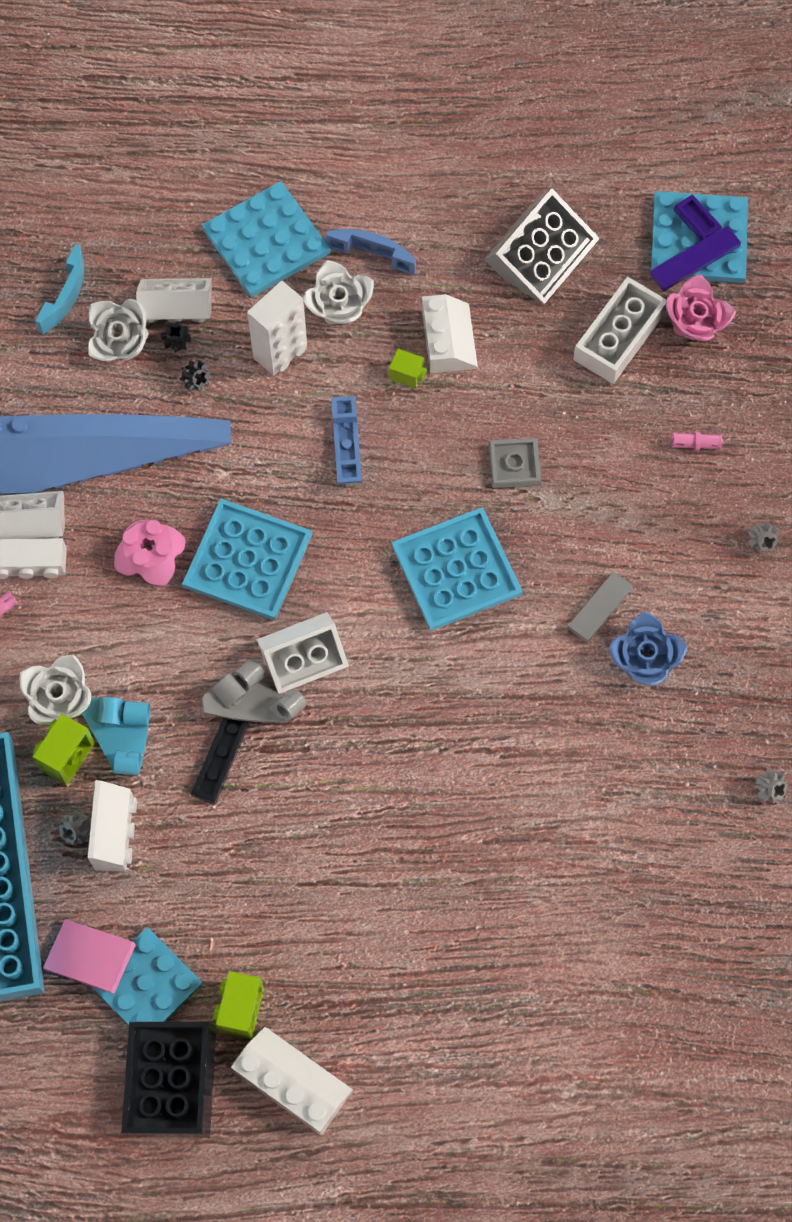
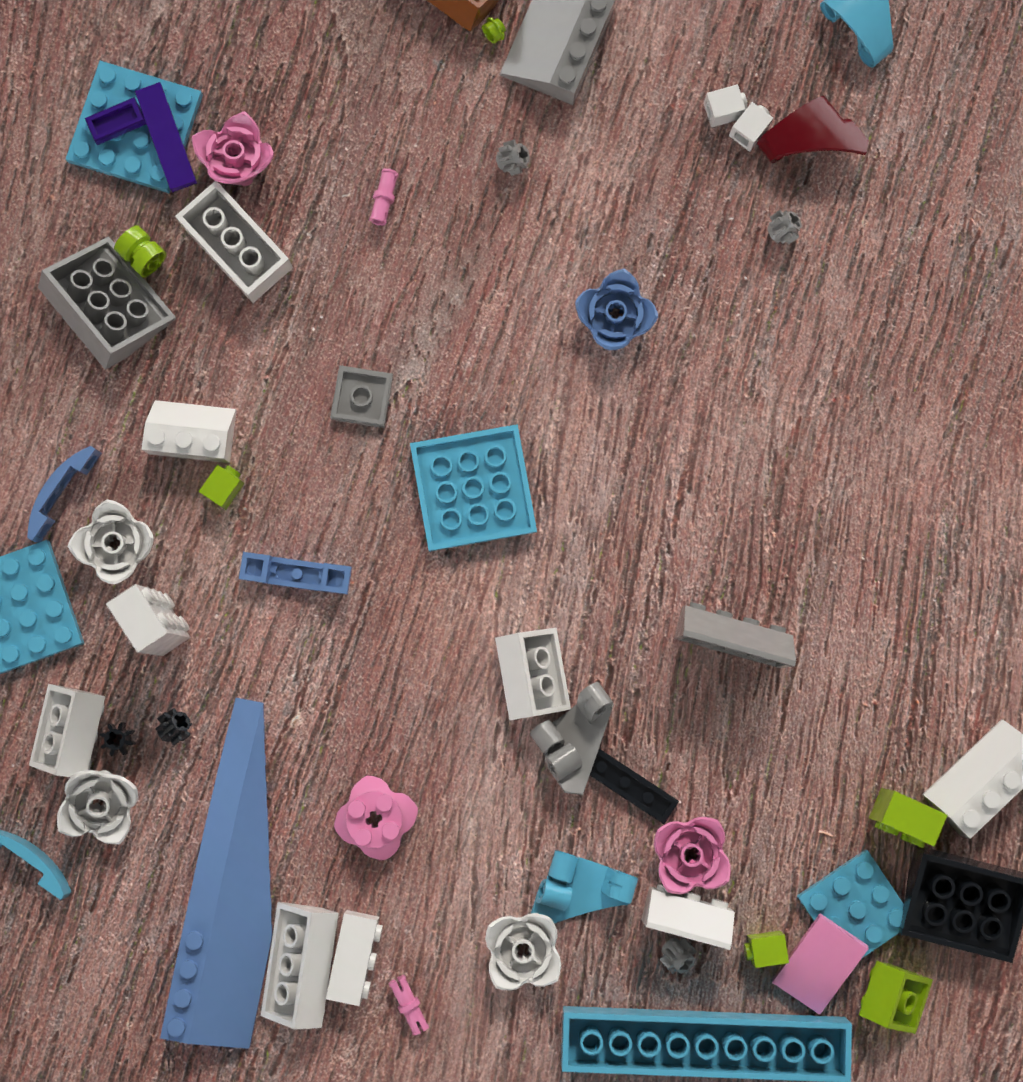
camera: 80 degrees left, 15 degrees up
(63, 749) = (592, 954): lime brick -> none
(70, 1035) = (895, 997): none -> lime slope
(94, 906) = (766, 949): none -> lime brick
(150, 809) = (710, 867): none -> bright pink brick
(247, 559) = (410, 711): medium azure plate -> none
(374, 814) = (736, 637): none -> light grey slope
(592, 262) = (136, 247): none -> lime wheel
(600, 607) = (549, 347): light grey tile -> none

